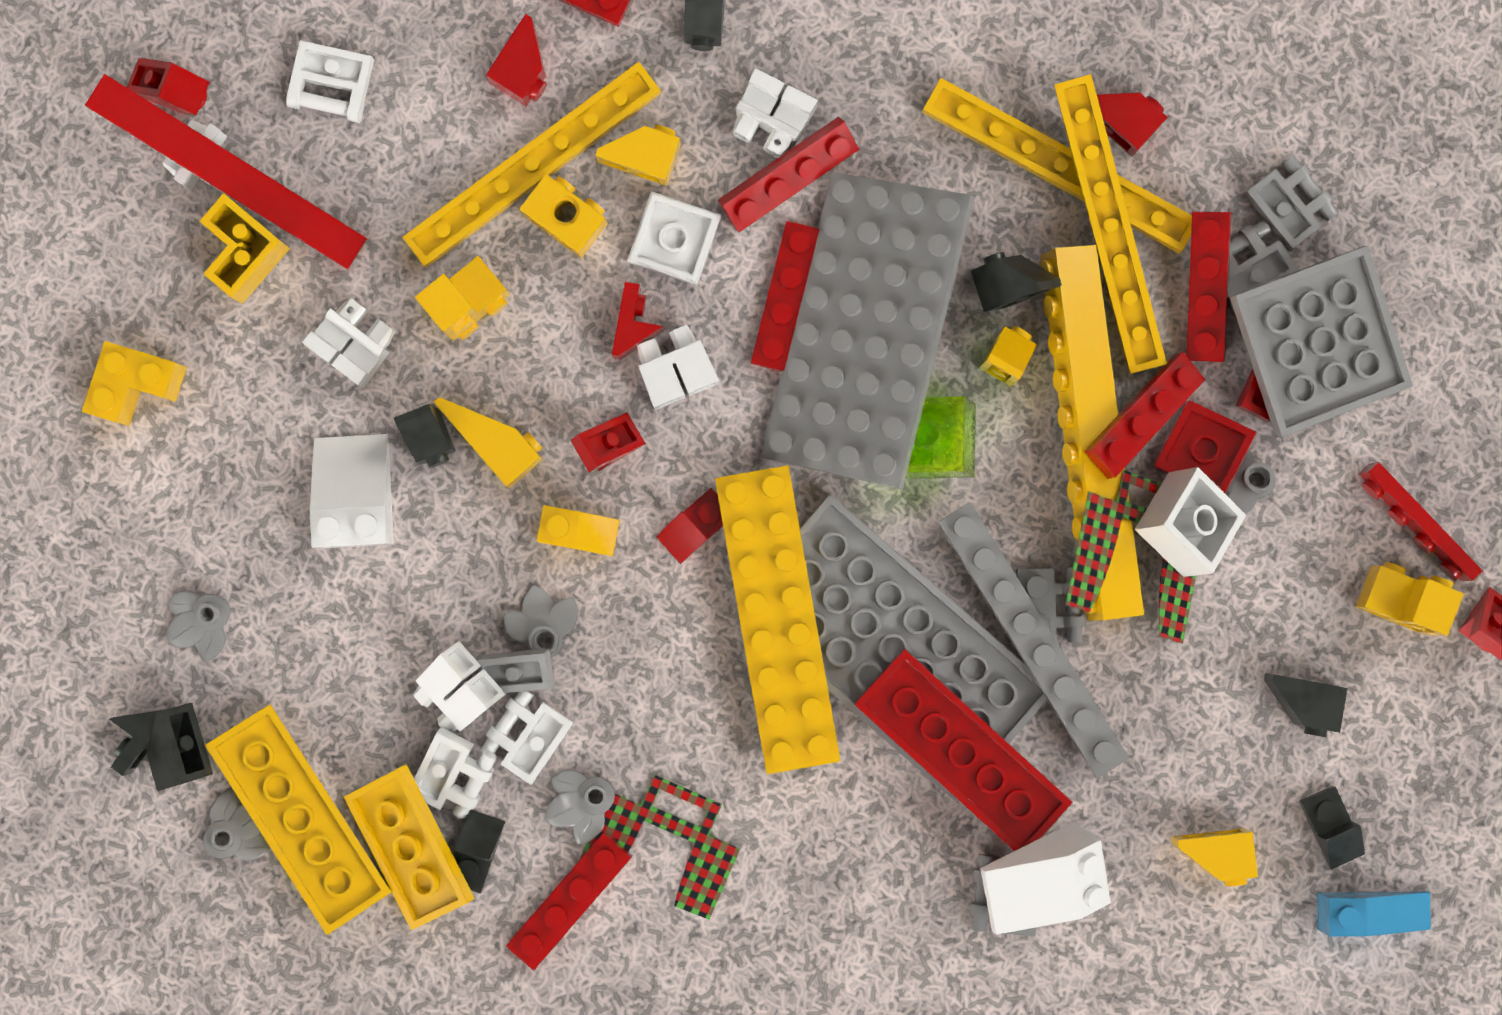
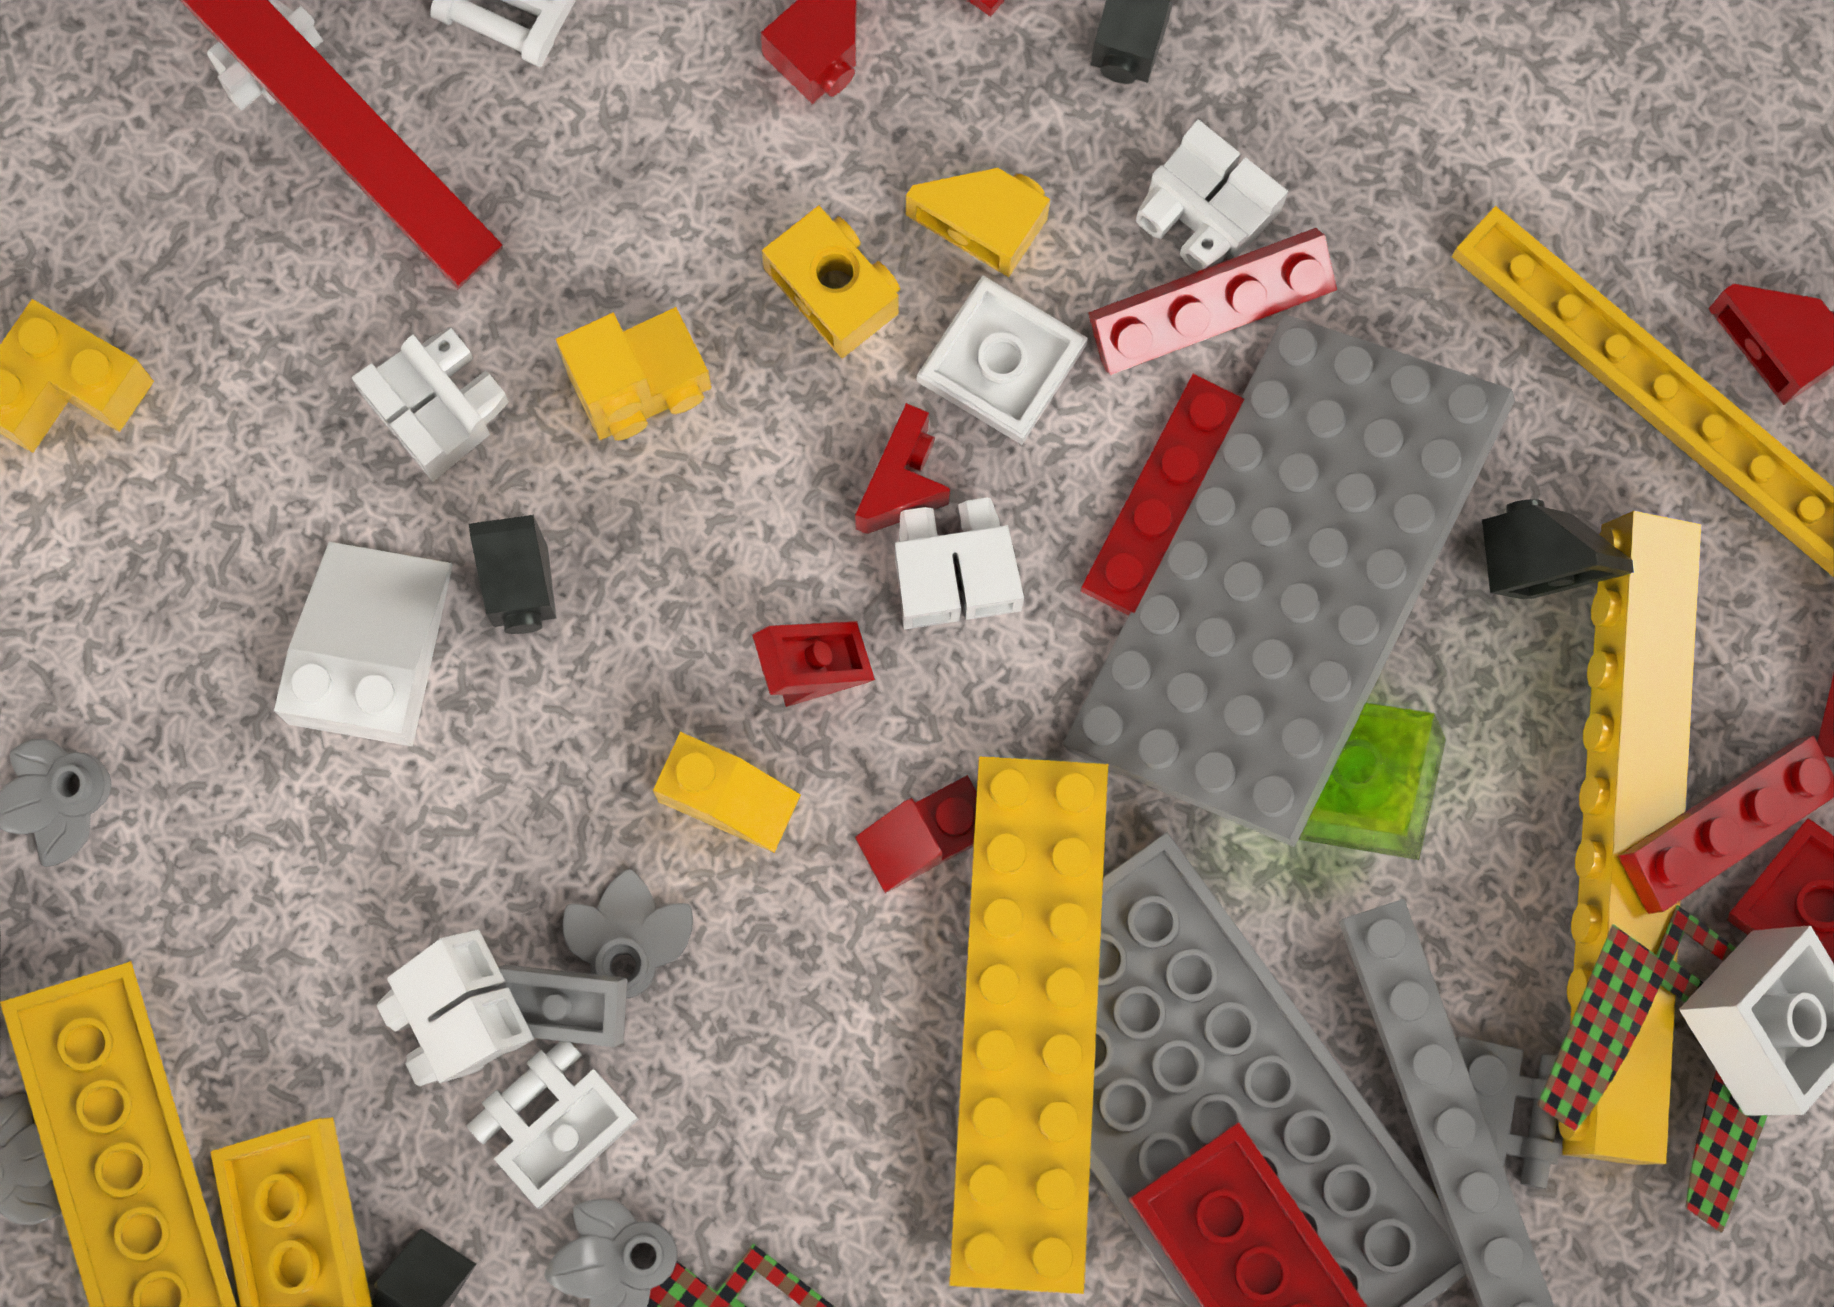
camera: 10 degrees right, 10 degrees down
(249, 250) = (306, 218): yellow brick -> none
(441, 767) = (392, 1140): white plate -> none
(499, 445) = (629, 616): yellow slope -> none
(529, 165) = (777, 198): yellow plate -> none
(1009, 355) = (1517, 673): yellow slope -> none
(1110, 223) = (1731, 499): yellow plate -> none

